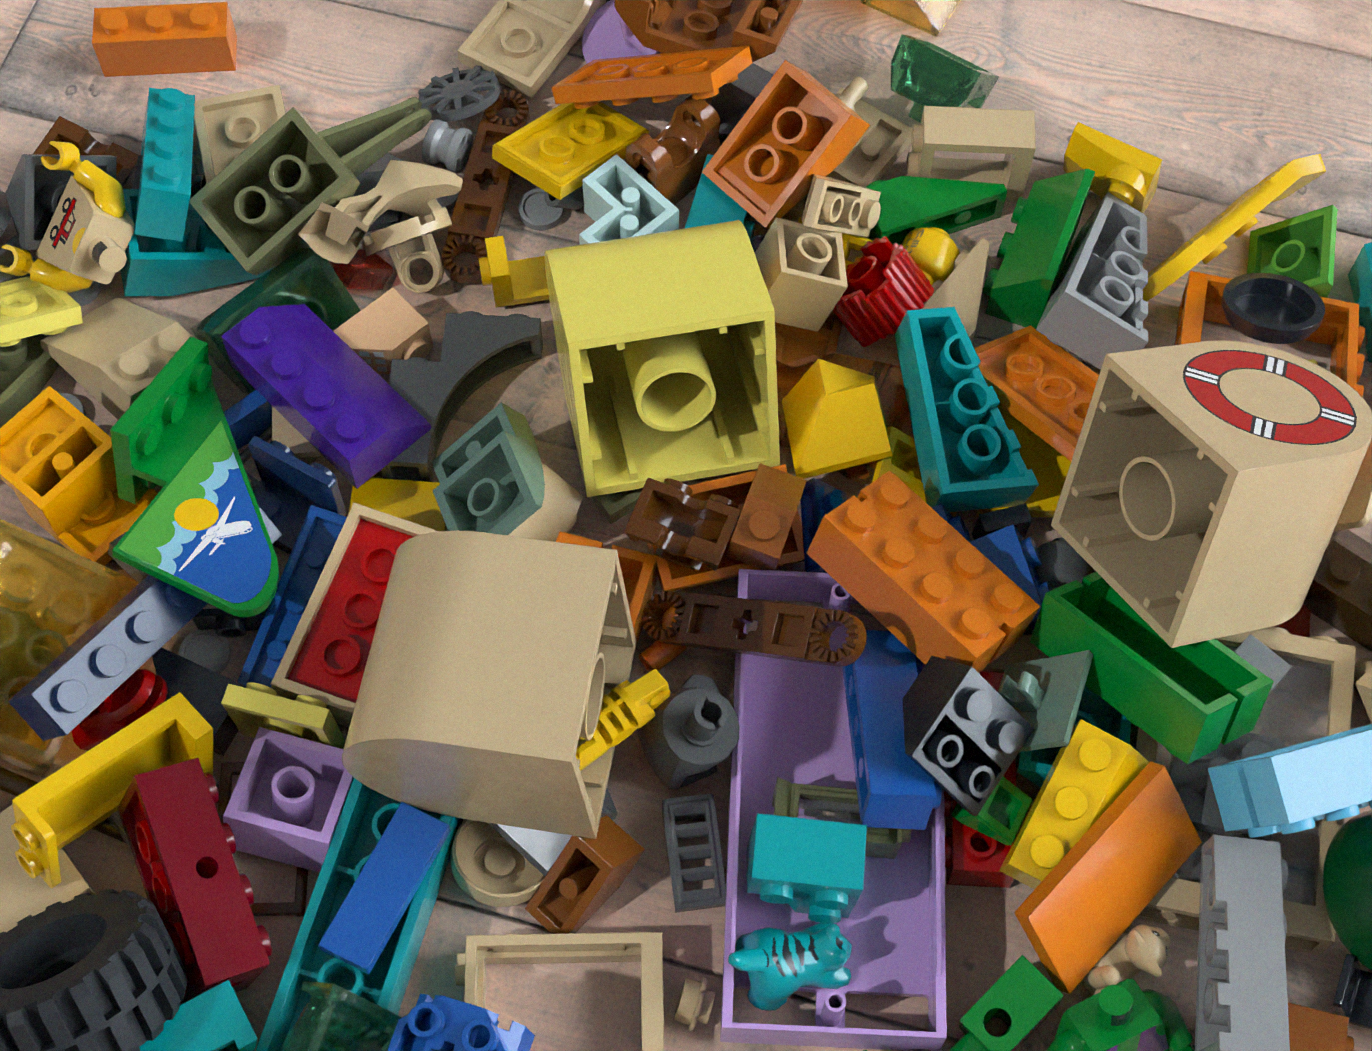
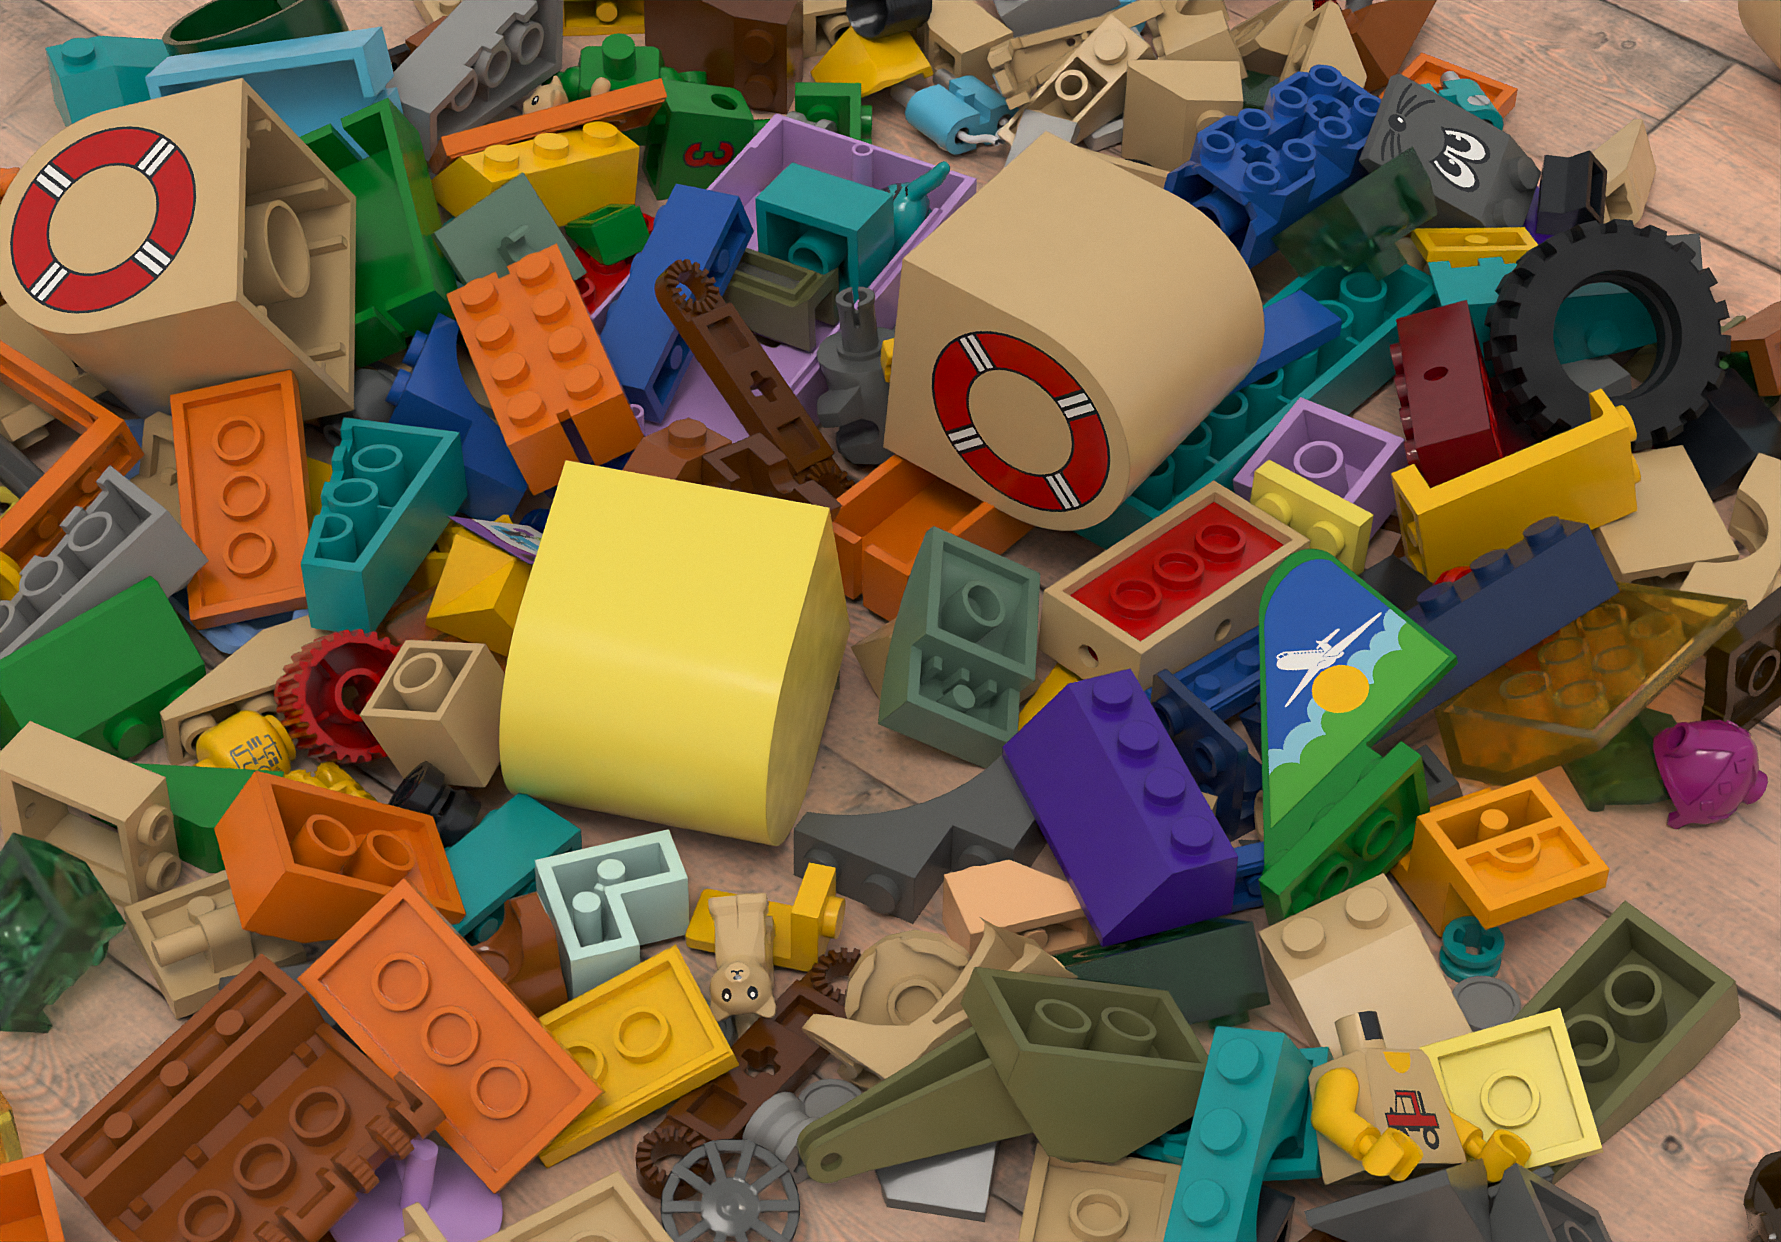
camera: 155 degrees left, 20 degrees down
(524, 218) = (743, 959): none -> tan animal
(836, 437) = (514, 538): none -> sticker
(841, 206) = (358, 730): tan slope -> none
(961, 731) = (613, 228): black slope -> none

